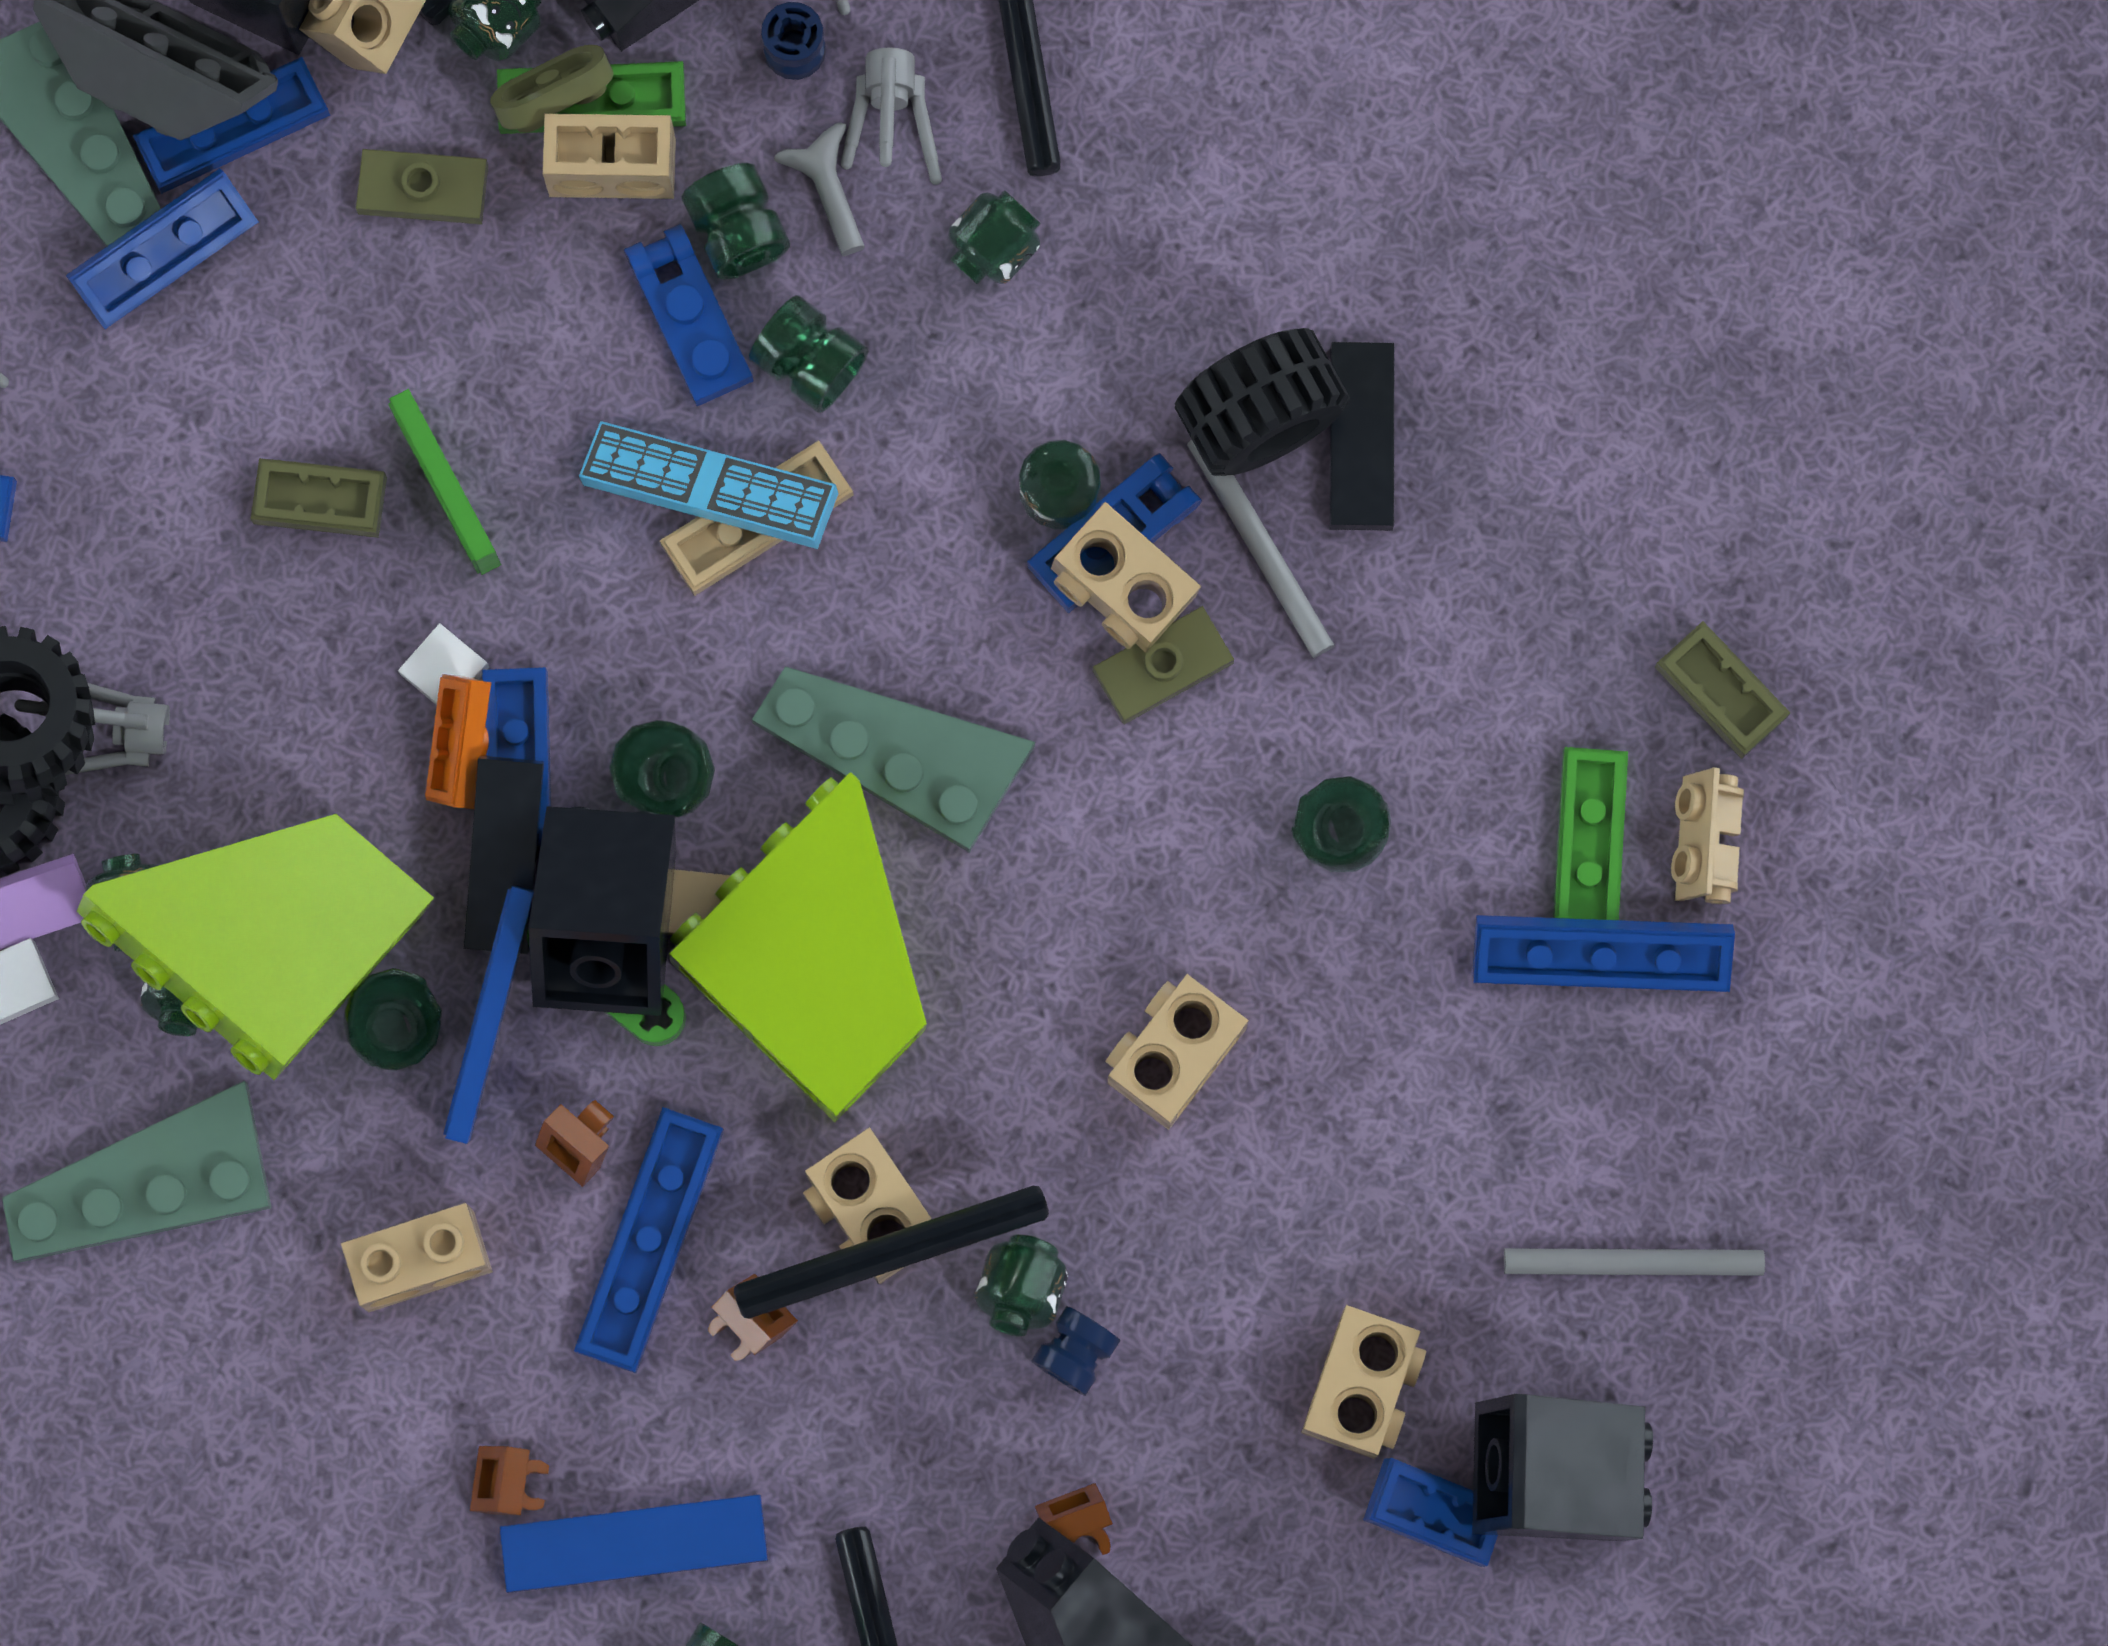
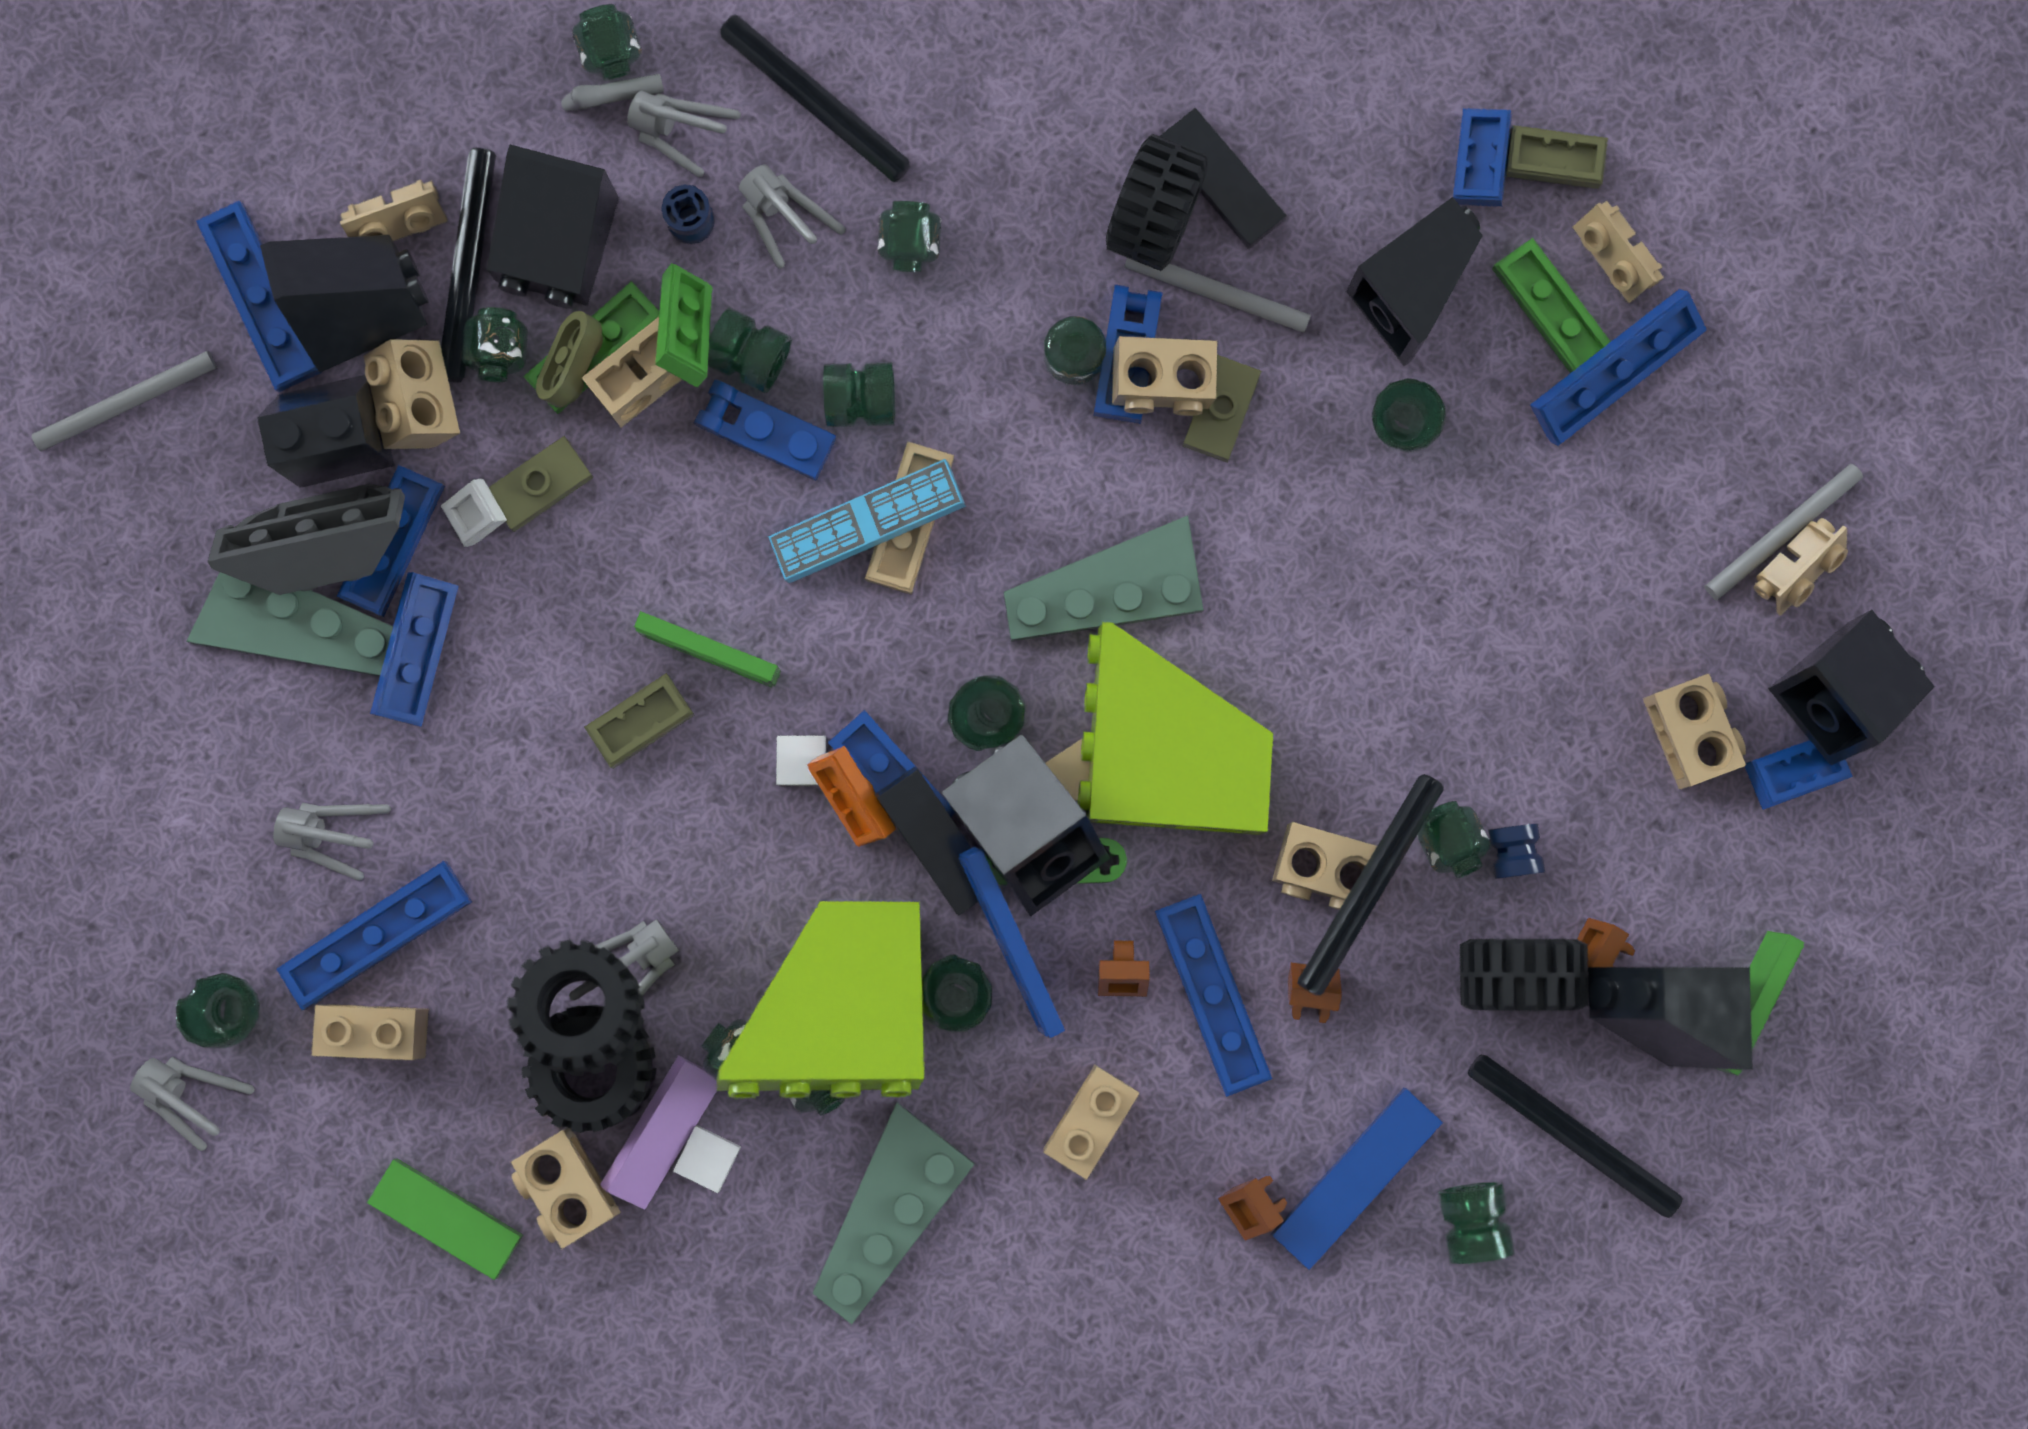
camera: 40 degrees left, 5 degrees up
(334, 162) = (473, 512): none -> white tile
(689, 144) = (684, 325): none -> bright green tile
(820, 164) = (766, 277): light grey piece -> none
(967, 1470) = (1524, 974): none -> black tyre
(1188, 1059) = (1438, 629): tan brick -> none
(1466, 690) = (1414, 276): none -> black slope
(1644, 628) = (1482, 157): none -> blue plate
(1652, 1311) = (1817, 552): none -> tan hinge

